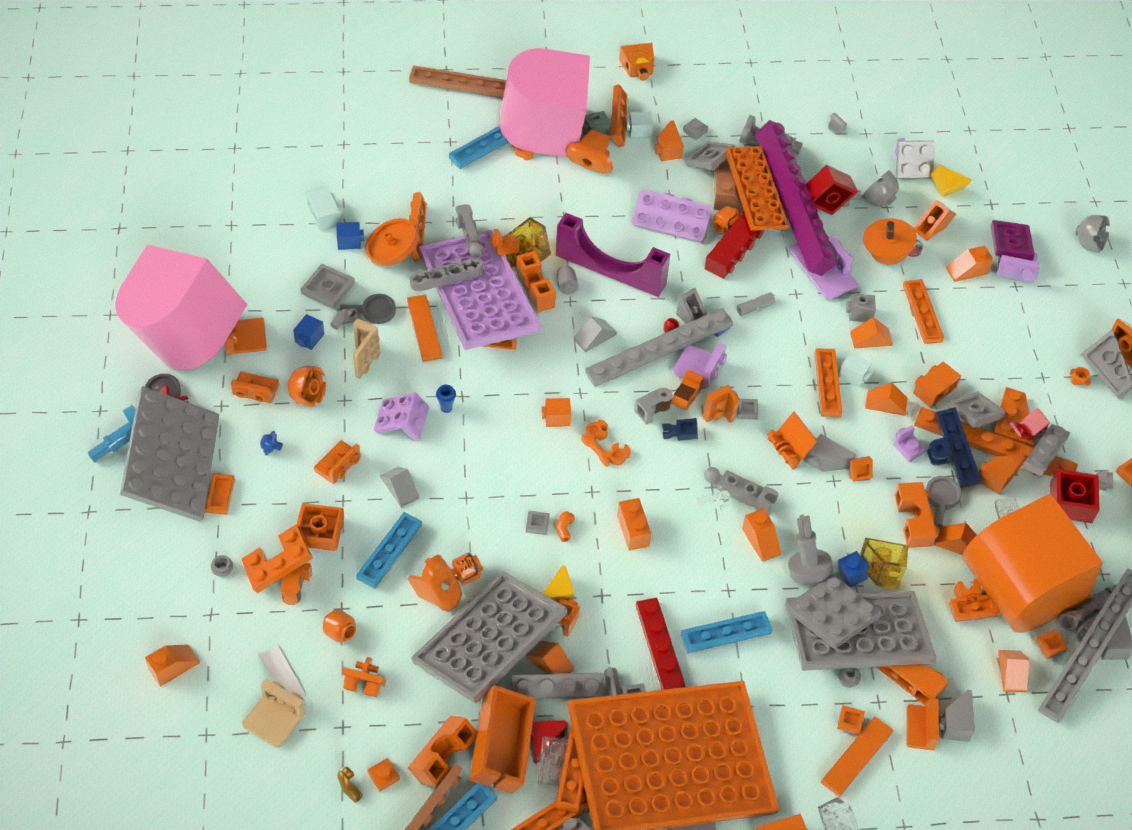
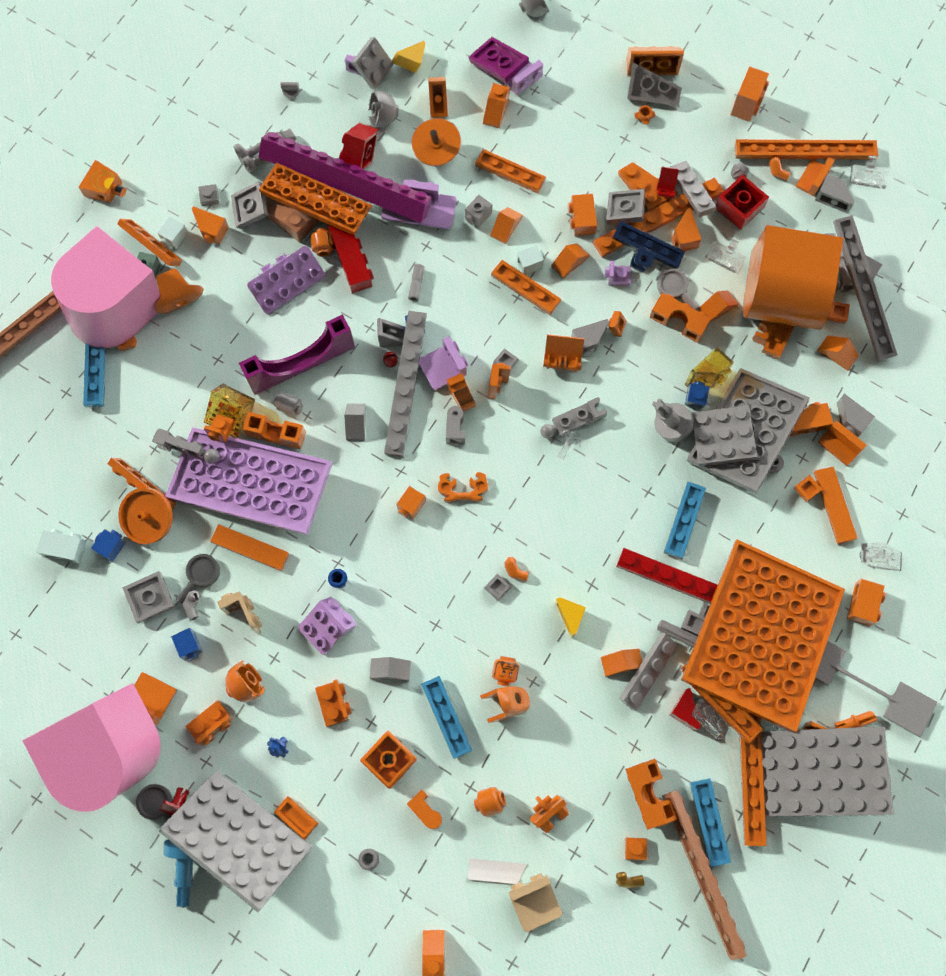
camera: 50 degrees left, 20 degrees up
(264, 572) = (405, 829): orange plate -> none
(467, 268) = (215, 496): light grey beam -> none
(489, 636) = (580, 695): light grey plate -> none
(503, 739) = (674, 745): orange piece -> none
(571, 617) = (595, 625): orange window -> none
(634, 524) = (552, 519): orange brick -> none
(684, 430) = (494, 420): dark blue plate -> none
(761, 534) = (624, 435): orange slope -> none

